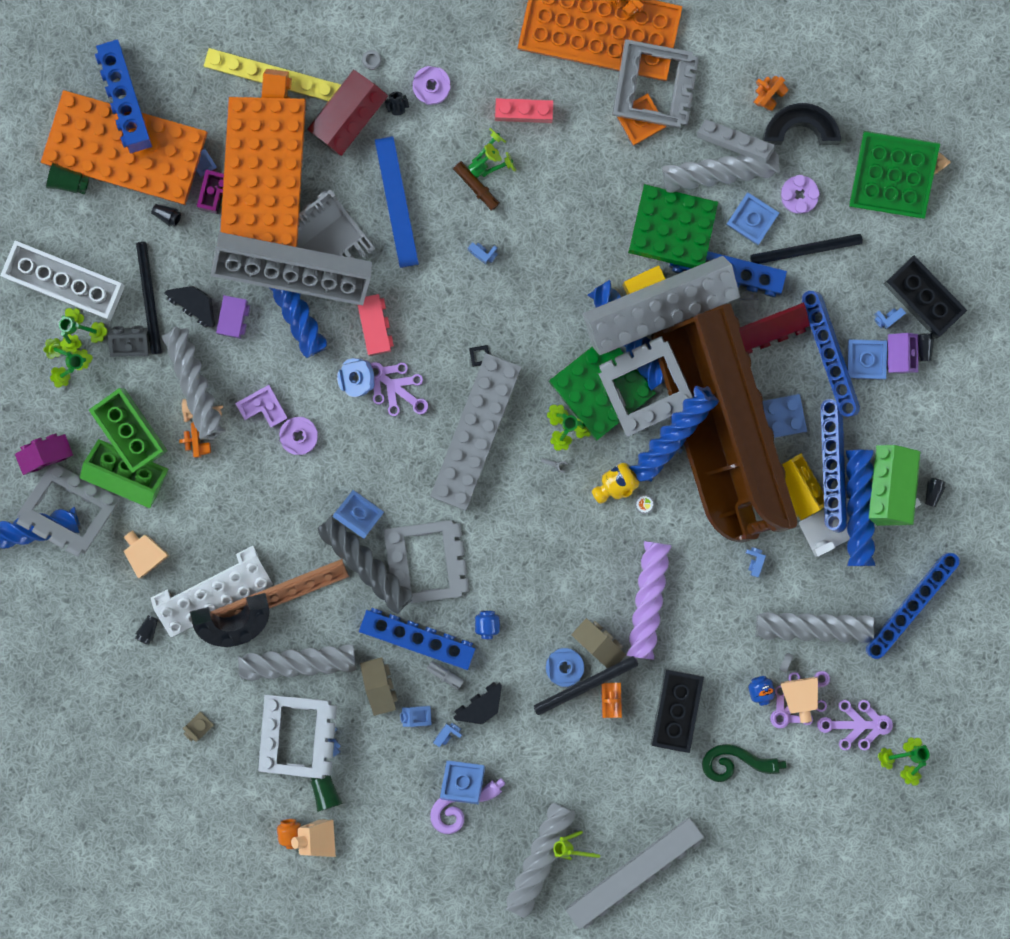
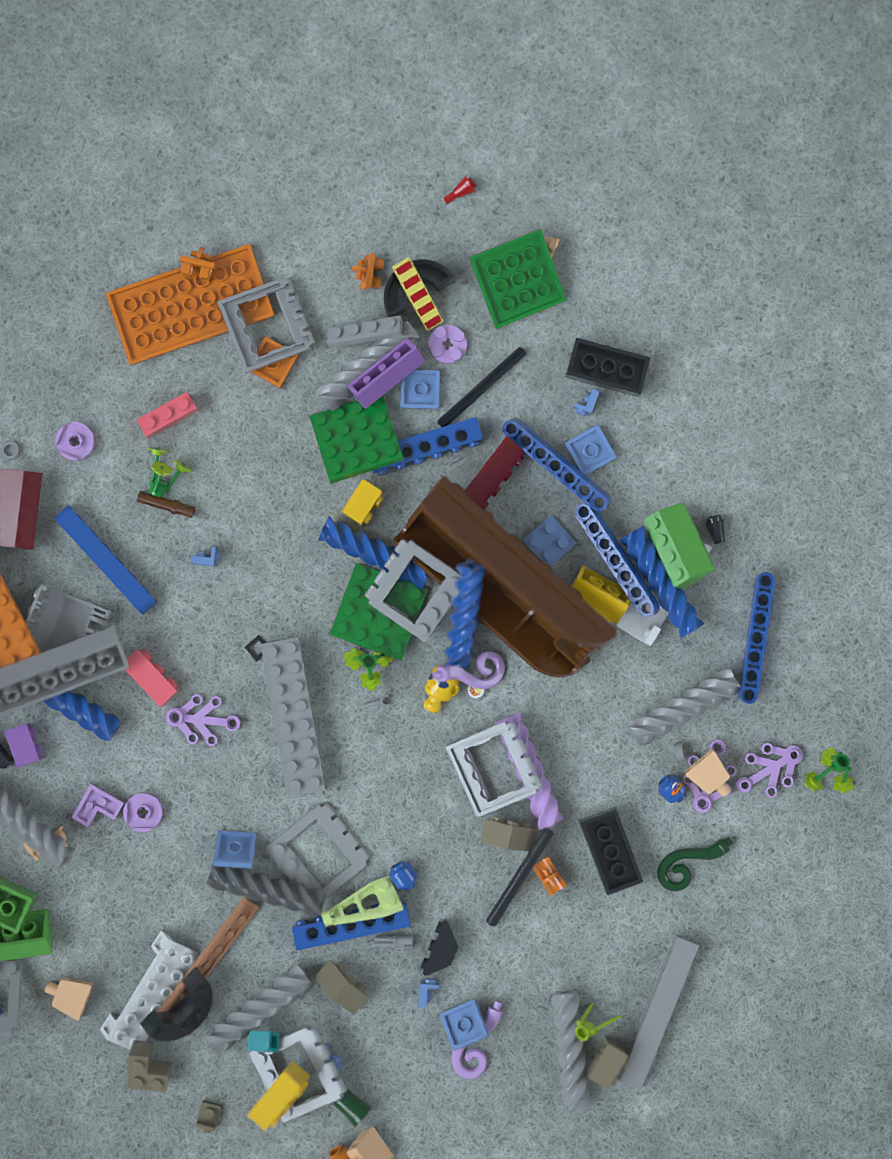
camera: 35 degrees left, 0 degrees up
(146, 632) = (113, 1060): black cone -> none
(167, 656) = (145, 1072): none -> dark tan brick
(198, 448) = (62, 876): orange hips -> none
(271, 745) = (280, 1096): none -> yellow brick
(284, 691) = (263, 1041): none -> teal brick
(364, 371) = (170, 728): plate -> none
(397, 103) = (54, 475): black gear -> none
(416, 716) = (390, 992): medium blue bracket -> none
(462, 633) = (387, 897): none -> yellowish green plate
(565, 888) = (607, 1064): none -> dark tan brick
(571, 658) = (489, 882): medium blue plate -> none
(596, 572) = (471, 777): none -> hinge
(635, 475) = (451, 672): none -> lavender plant
(661, 305) = (385, 512): light grey brick -> none
(732, 187) = (386, 373): none -> medium lavender brick
(756, 565) = (602, 684): medium blue bracket -> none
(800, 135) = (417, 293): none -> tile
(894, 69) = (465, 187): none -> red cone
(902, 353) = (617, 426): medium lavender brick -> none
(925, 346) = (633, 409): black cone -> none

